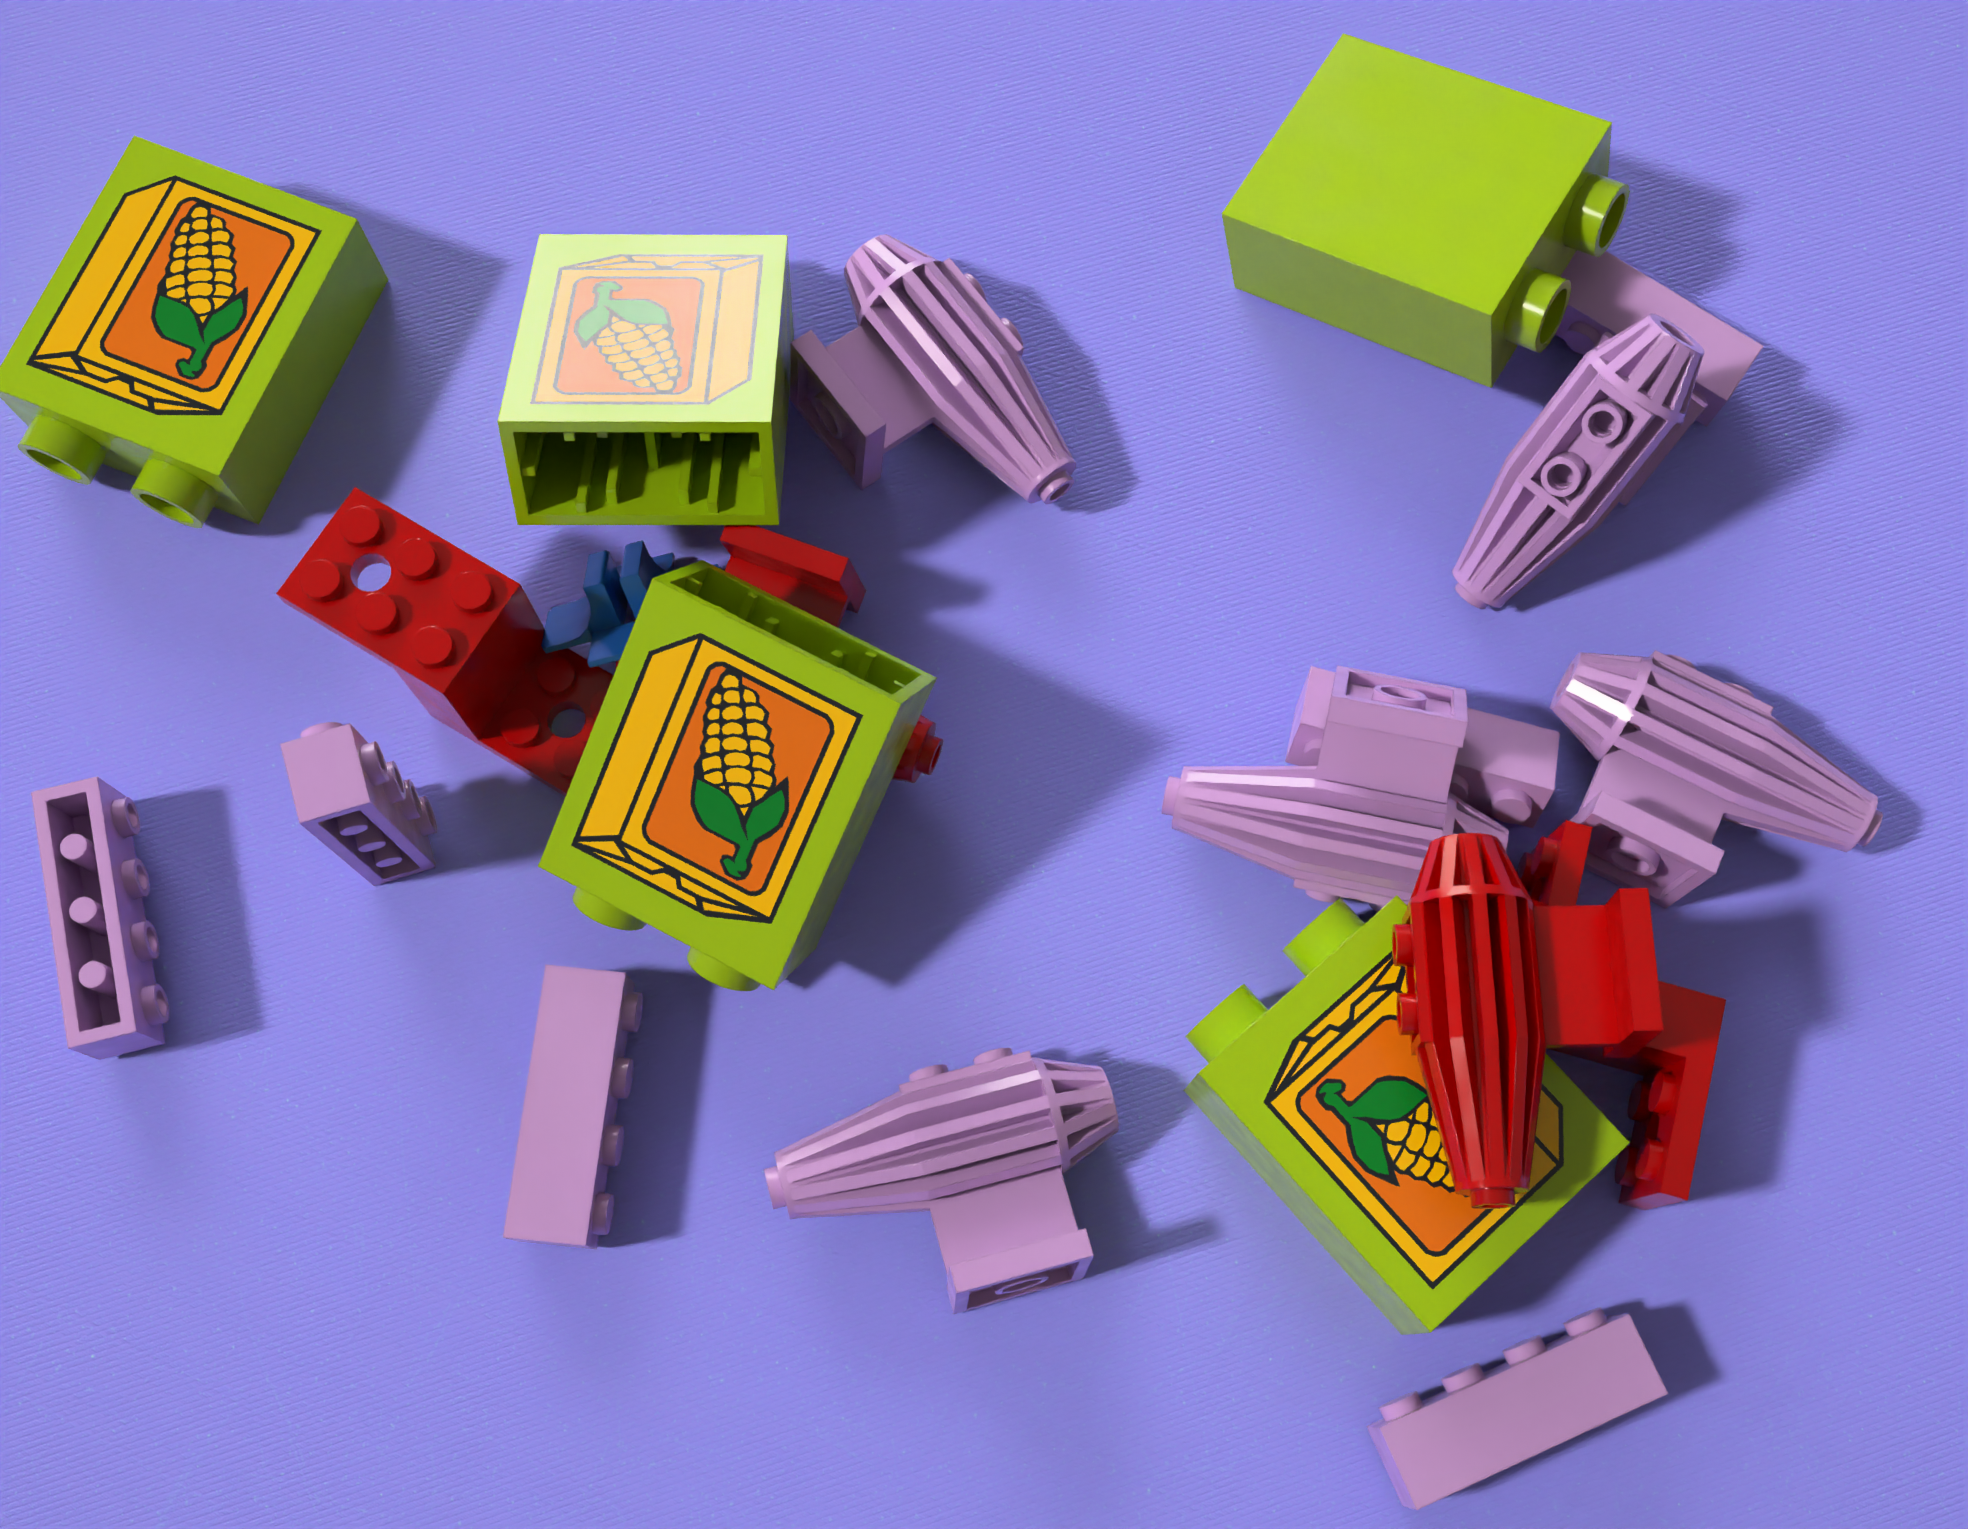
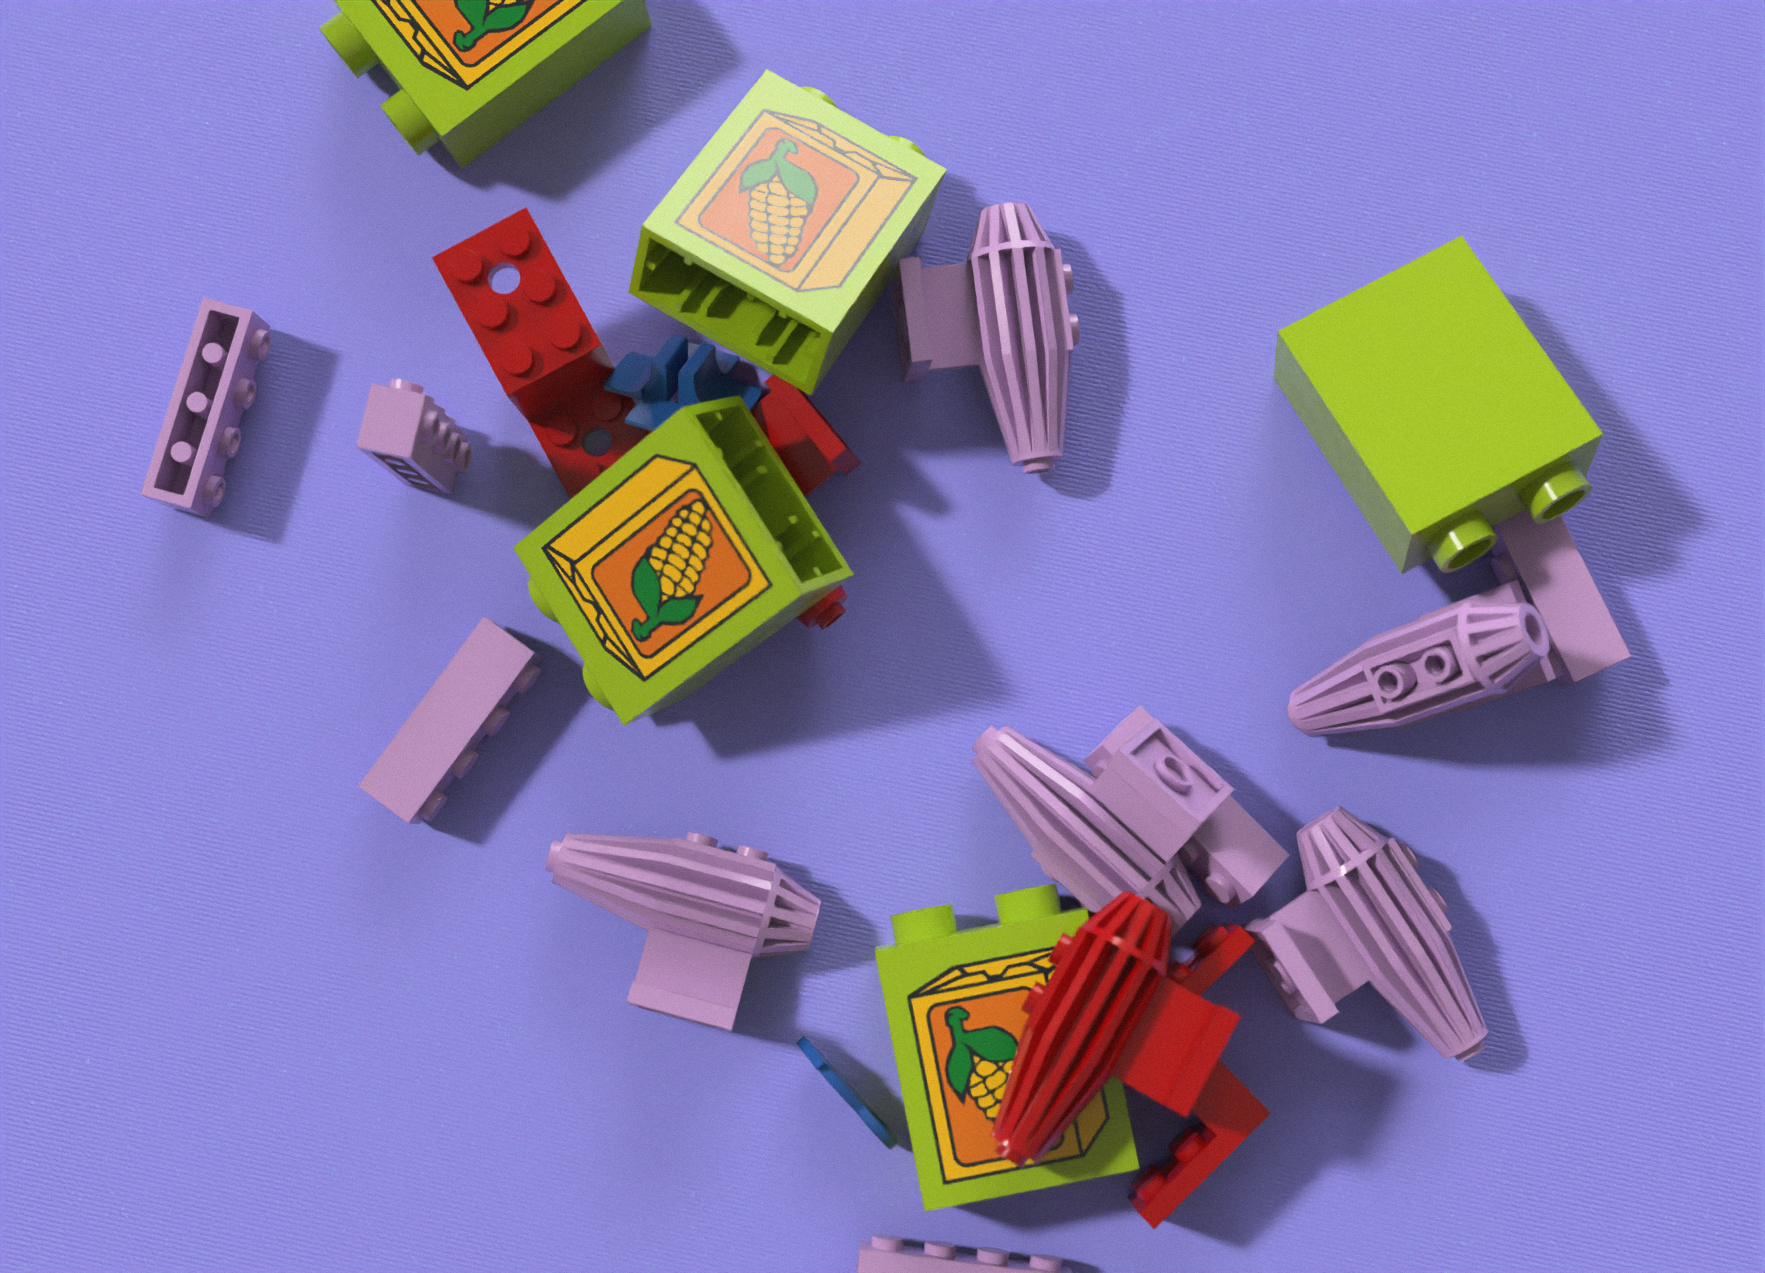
camera: 35 degrees right, 10 degrees up
(1256, 1264) = (848, 1093): none -> blue brick

